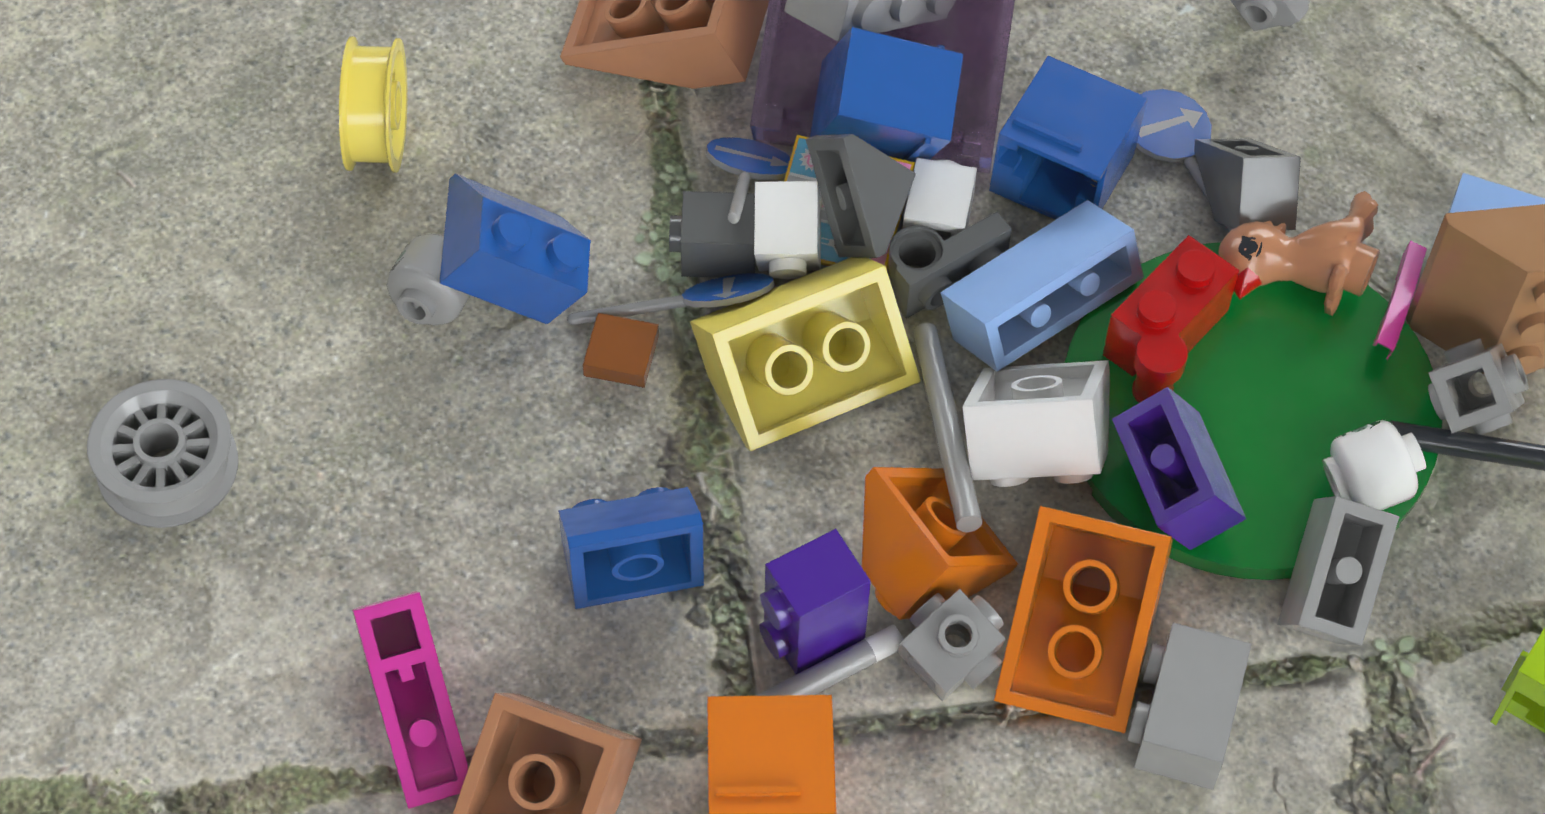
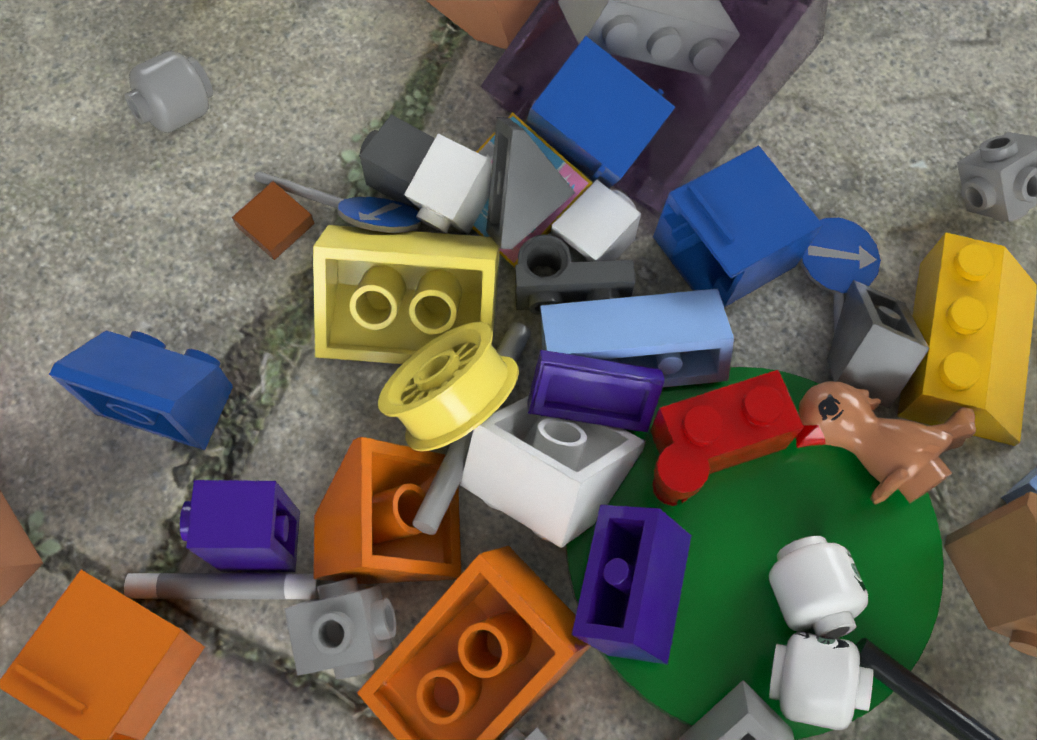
camera: 30 degrees right, 10 degrees up
(512, 252) = (231, 94): blue slope -> none
(748, 160) = (463, 112): piece -> none
(910, 396) = (449, 387): none -> light yellow wheel
(1040, 337) = (594, 391): none -> dark purple tile
(1322, 113) = (978, 323): none -> yellow slope
(1326, 397) = (818, 587): none -> white head
(1401, 296) = (949, 521): dark pink piece -> none
(1461, 404) = (952, 667): light grey brick -> none

